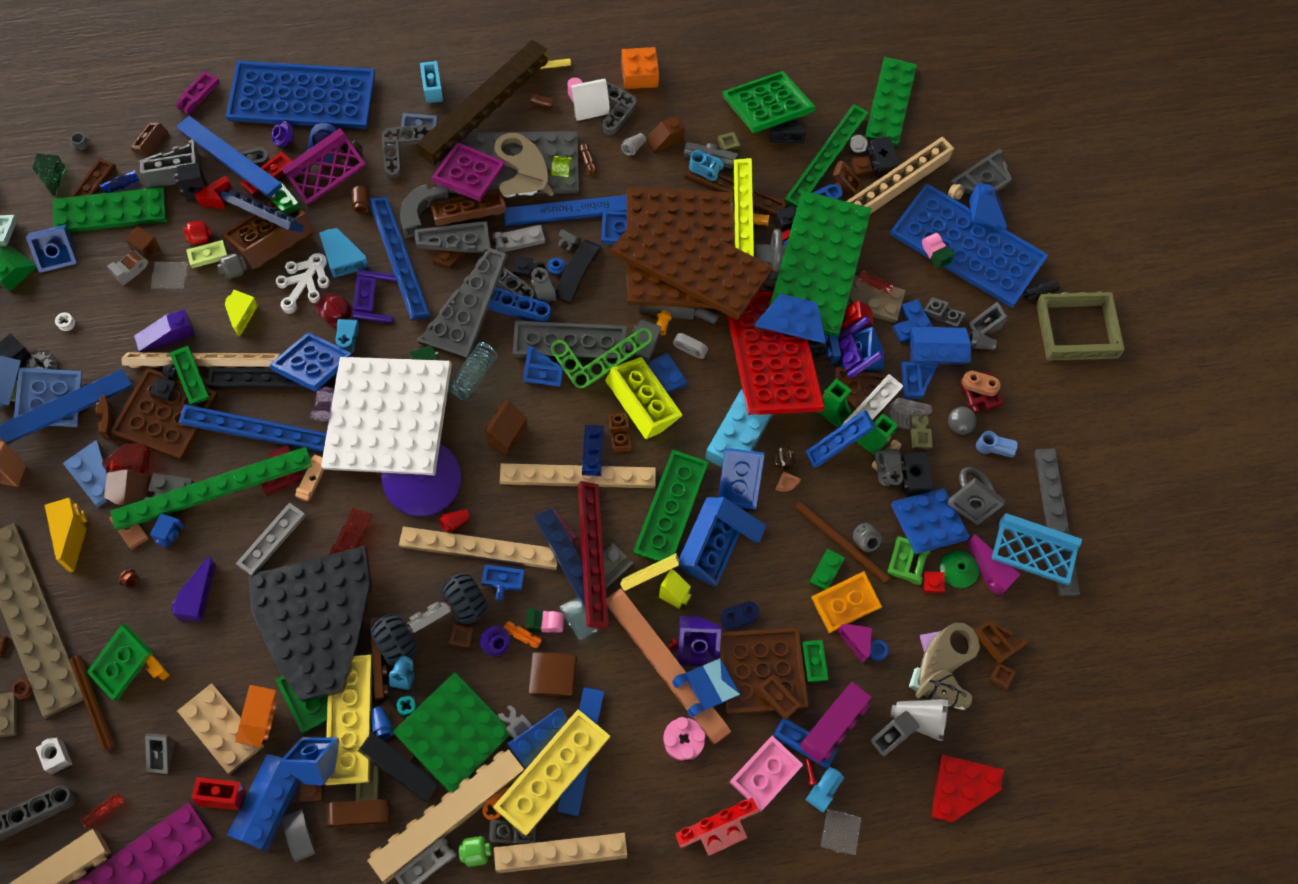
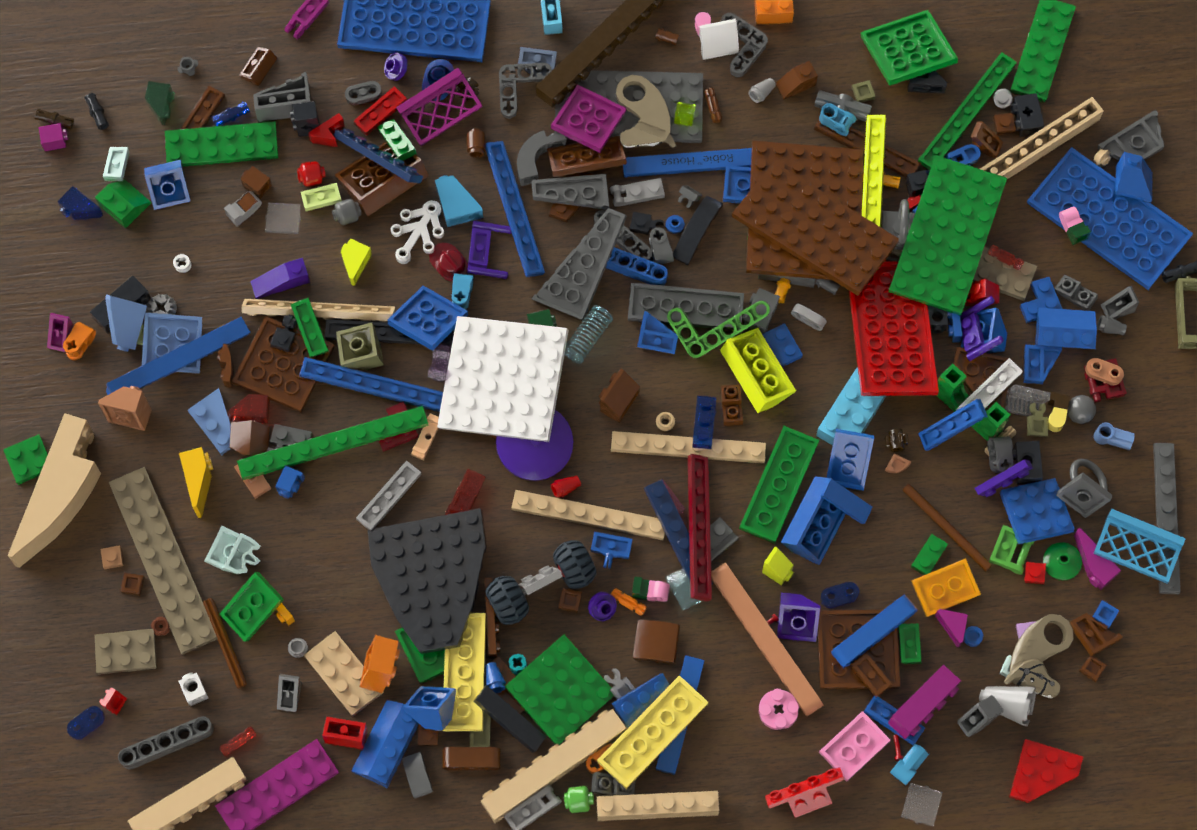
camera: 10 degrees right, 5 degrees up
(102, 605) = (232, 551): none -> light aqua plate
(128, 578) = (254, 527): copper plate -> none
(171, 703) = (297, 647): none -> light grey plate
(193, 596) = (316, 547): dark purple slope -> none
(229, 157) = (342, 91): blue tile -> none
(242, 393) = (359, 347): none -> olive slope
(402, 674) = (514, 632): dark azure piece -> none
(553, 446) = (665, 416): none -> tan plate
(650, 572) = (754, 548): light yellow tile -> none
(710, 685) = (806, 660): blue flag -> none
(777, 650) = (874, 631): none -> blue beam
(793, 318) = (915, 295): blue wing -> none
(867, 537) = (972, 524): dark grey head -> none
(896, 489) = (1004, 479): none -> dark purple plate
(941, 423) = (1059, 411): none -> leg
(1009, 619) = (1105, 613): none -> blue plate

